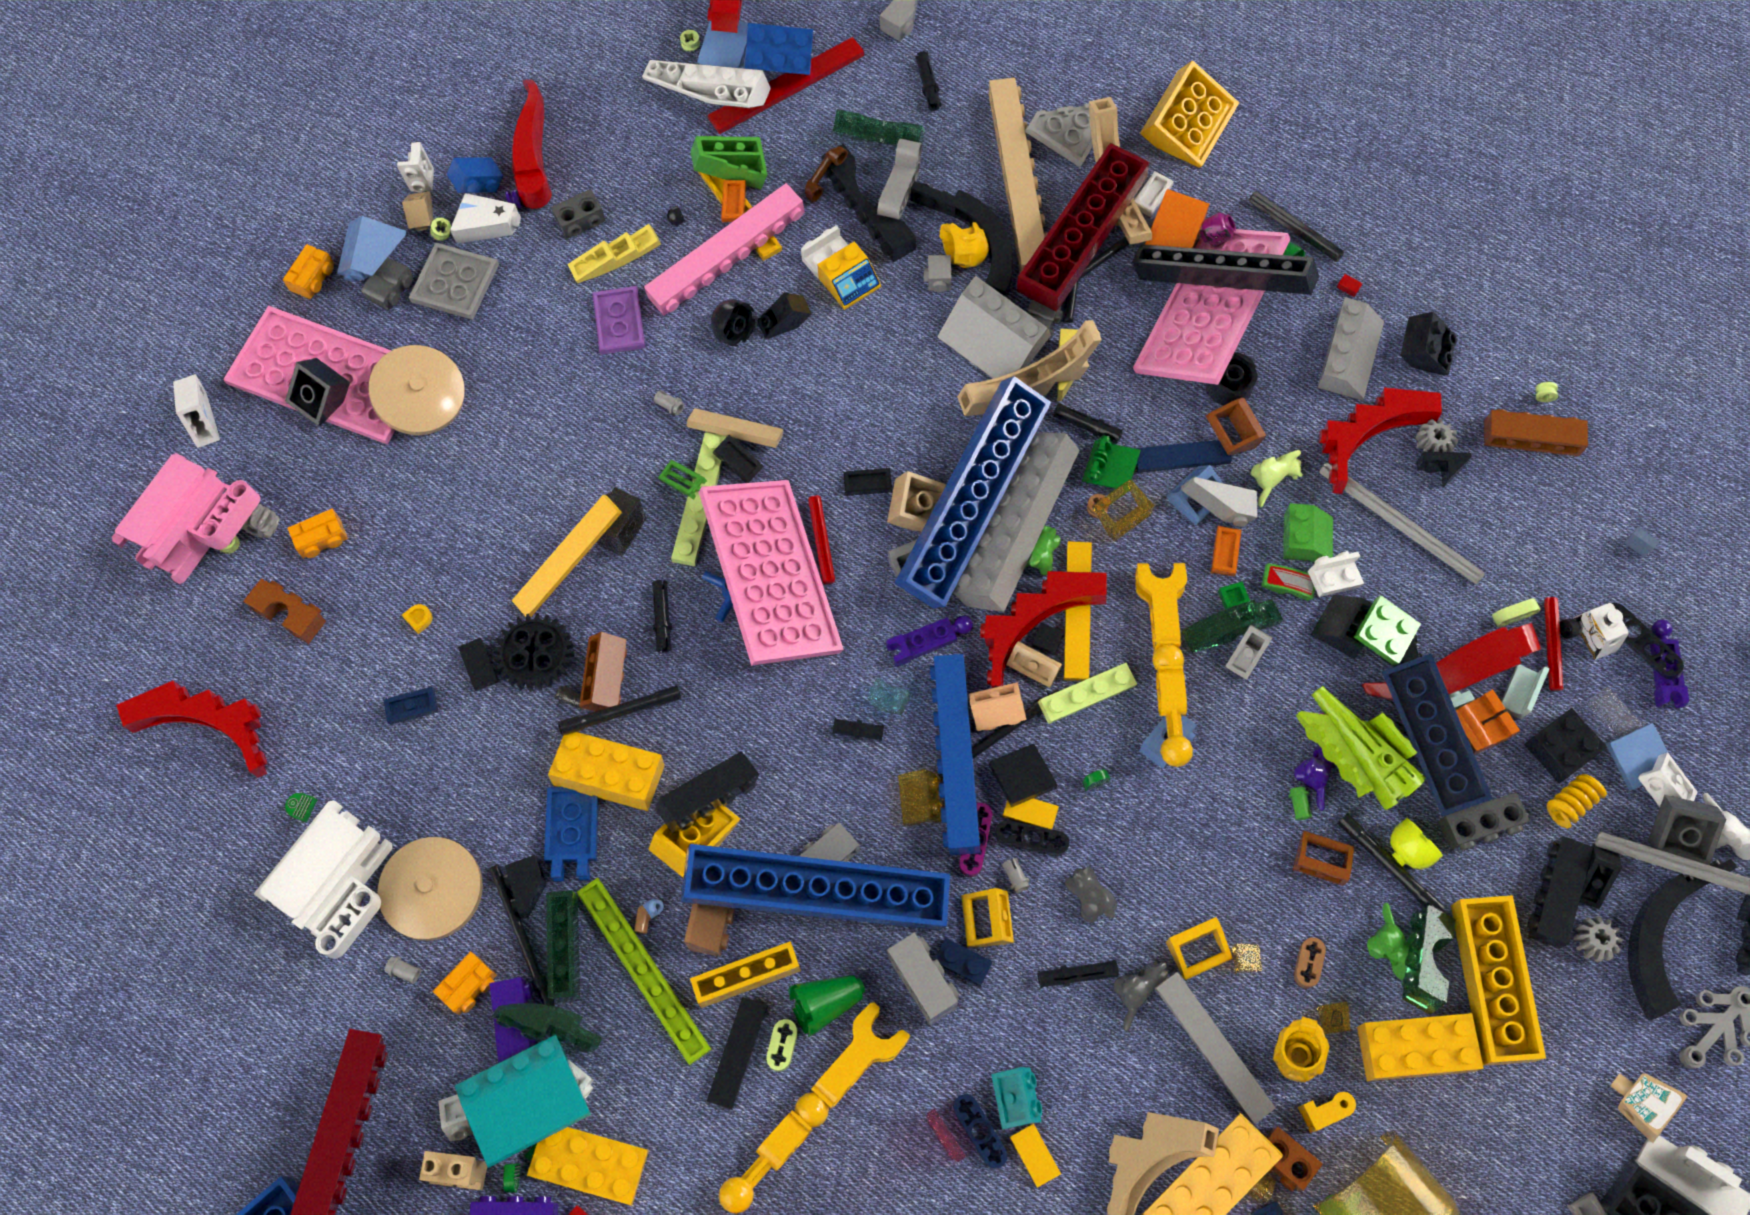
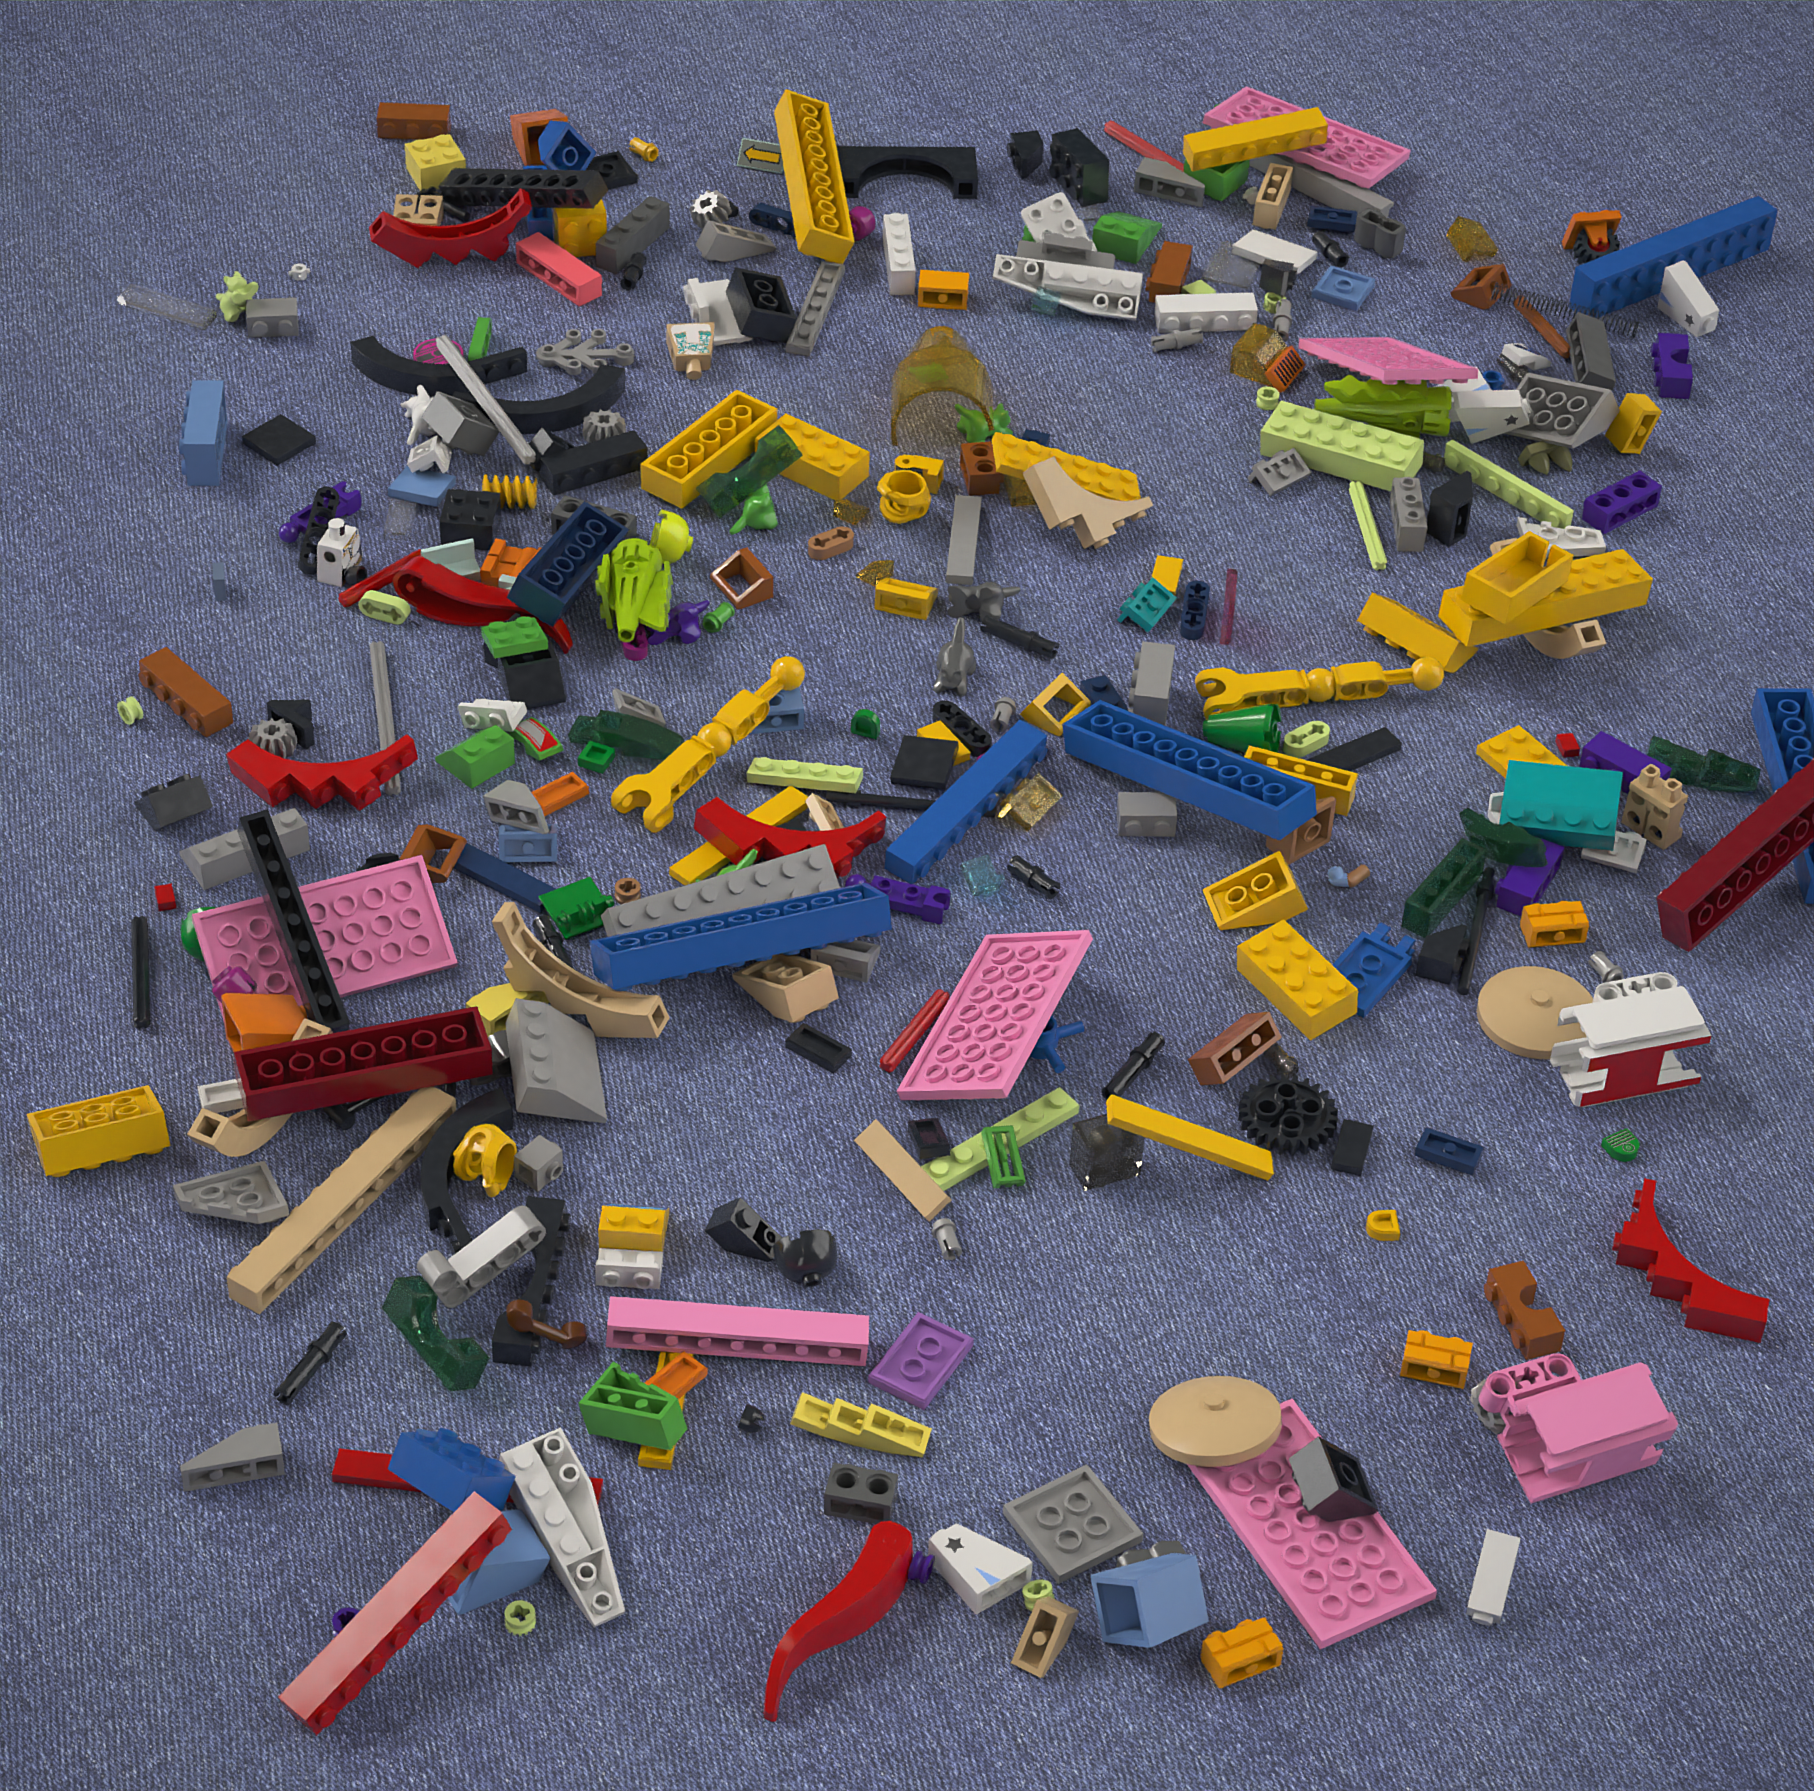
camera: 145 degrees left, 25 degrees down
(417, 170) = (1010, 1661): white bracket -> none
(474, 175) = (946, 1608): blue brick -> none
(582, 721) = (1292, 1006): black piece -> none
(644, 971) = (1384, 849): lime tile -> none
(706, 792) = (1218, 898): black brick -> none
(997, 707) = (894, 802): light nougat brick -> none
(1129, 521) = (613, 861): clear yellow tile -> none
(1272, 471) = (446, 807): yellowish green animal -> none
(1359, 834) = (696, 577): black piece -> none

